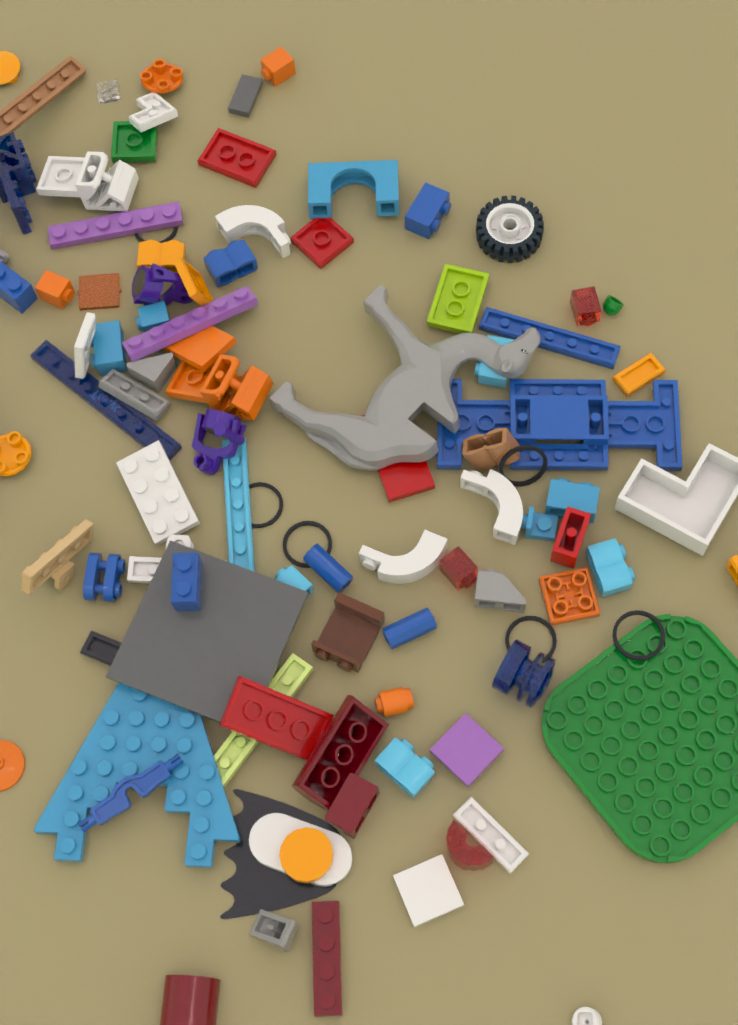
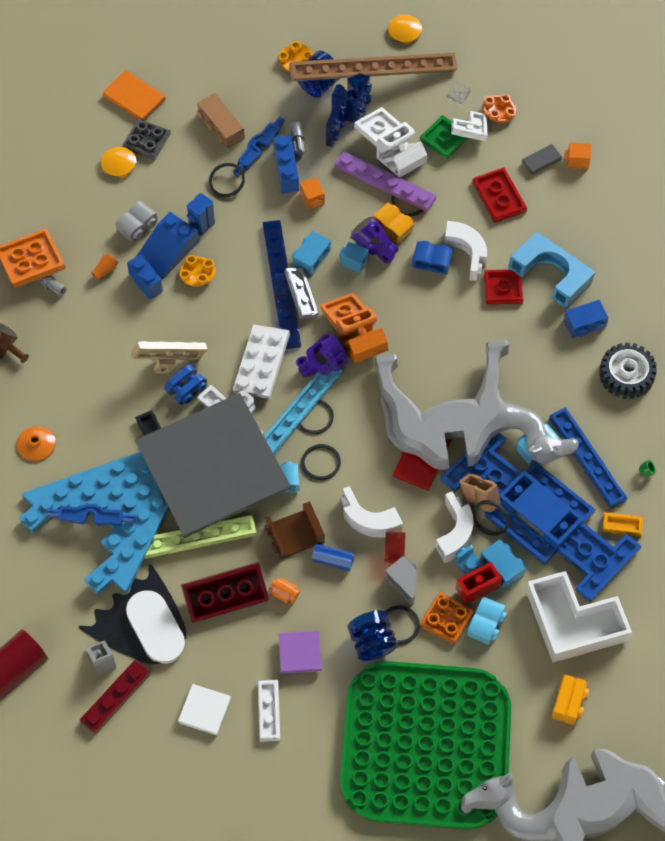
camera: 35 degrees right, 5 degrees down
(82, 345) = (292, 239): white tile -> none
(99, 291) = (338, 214): clear orange piece -> none
(153, 370) = (326, 287): light grey slope -> none
(186, 581) = (225, 422): blue brick -> none
(189, 323) = (371, 275): medium lavender plate -> none
(193, 282) = (395, 254): light orange tile -> none
(202, 348) = (365, 289): orange tile -> none
(274, 718) = (205, 540): red tile -> none
(306, 855) = (154, 630): light orange tile -> none
(328, 568) = (318, 484): blue axle -> none
(352, 804) = (206, 626): dark red panel -> none
(405, 767) = (255, 631): medium azure brick -> none
(457, 299) = (552, 389): lime plate -> none
(464, 855) = (242, 703): clear red cylinder -> none
(585, 306) = (628, 455): clear red brick -> none
(630, 656) = (469, 656): black piece -> none

